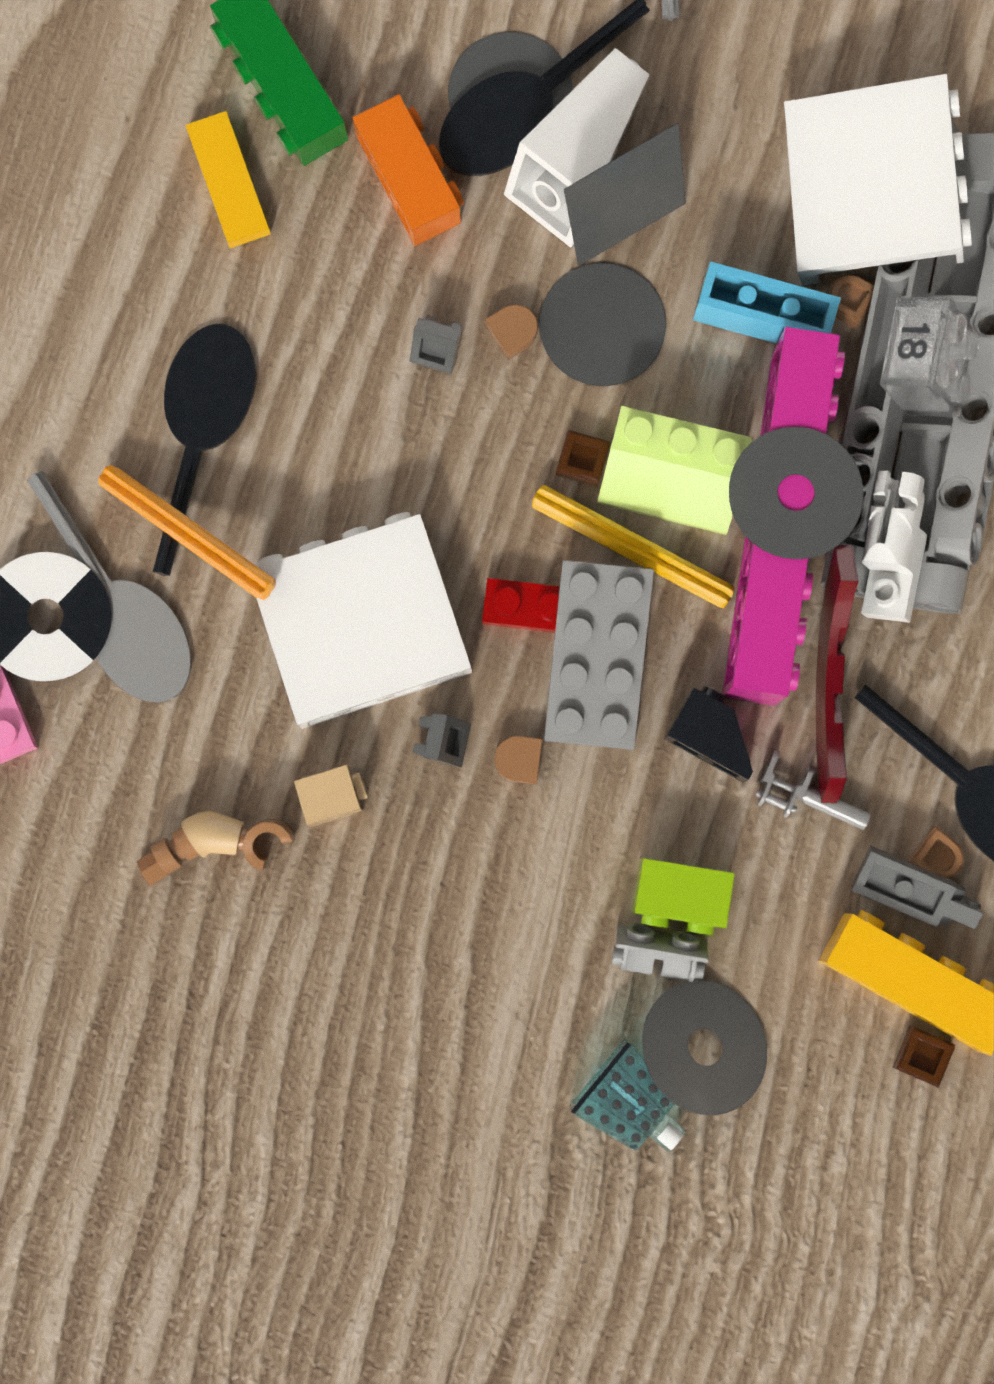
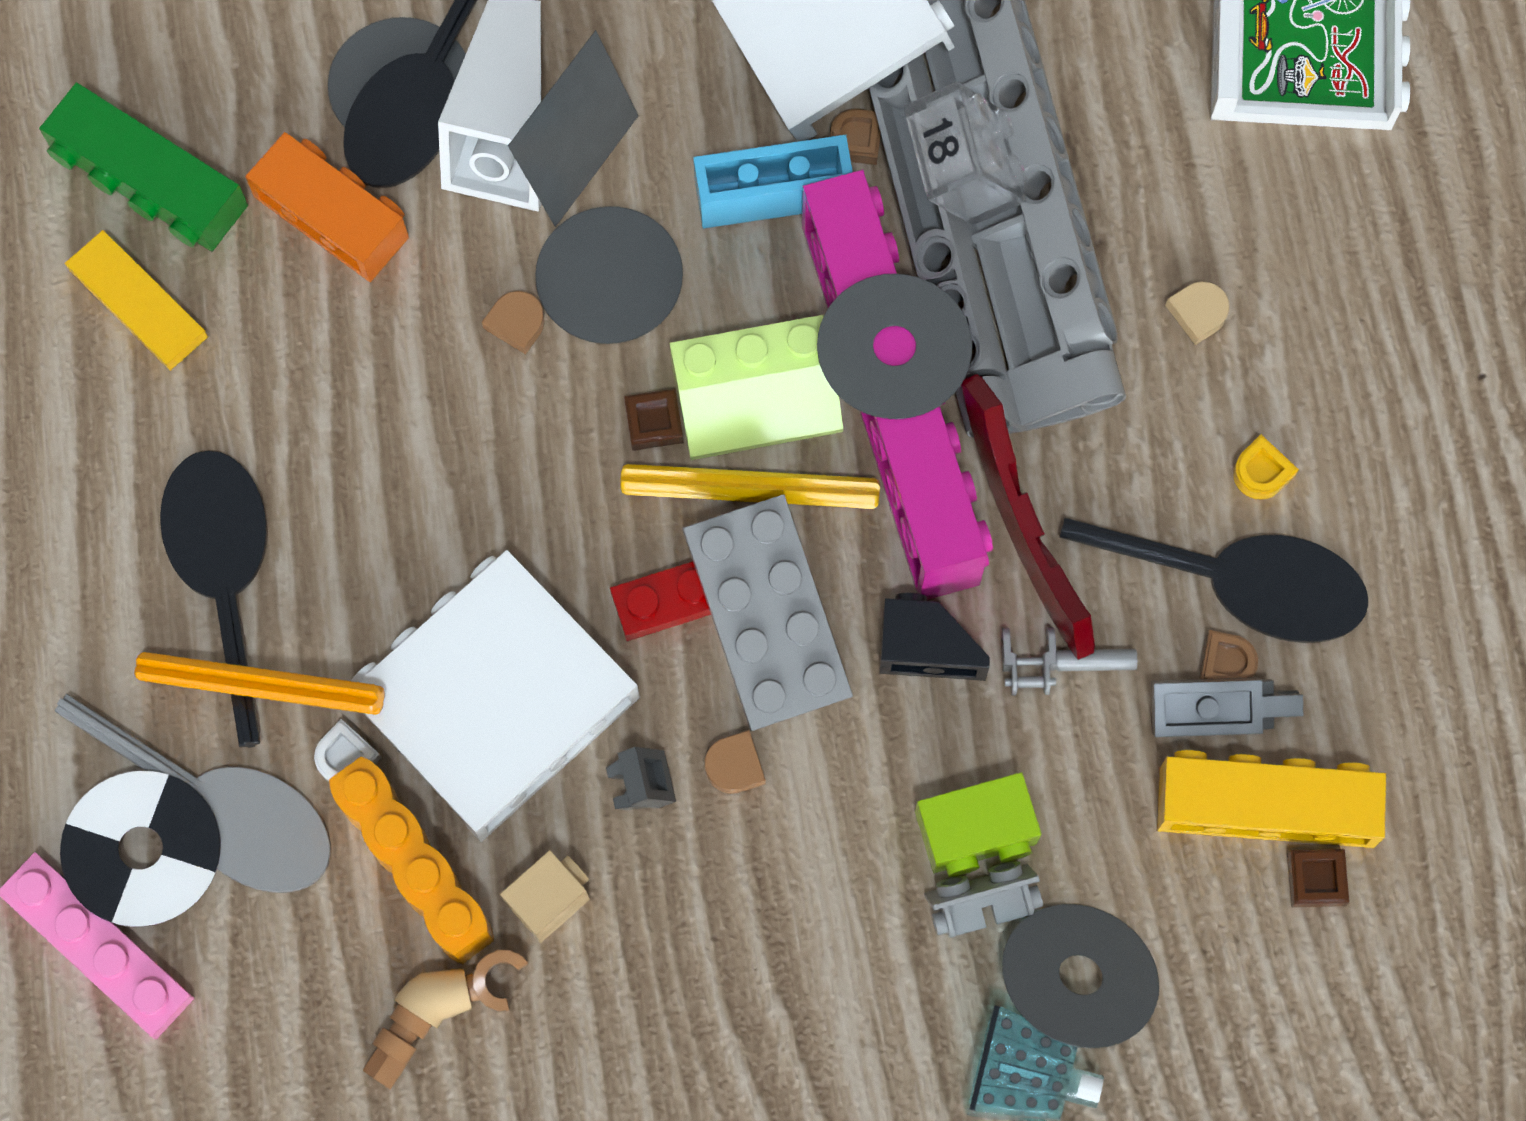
camera: 25 degrees left, 10 degrees down
(228, 614) = (340, 749): none -> white tile
(242, 735) = (406, 853): none -> light orange brick
(435, 344) = (441, 371): dark grey tile -> none
(894, 547) = (1024, 361): white plate -> none

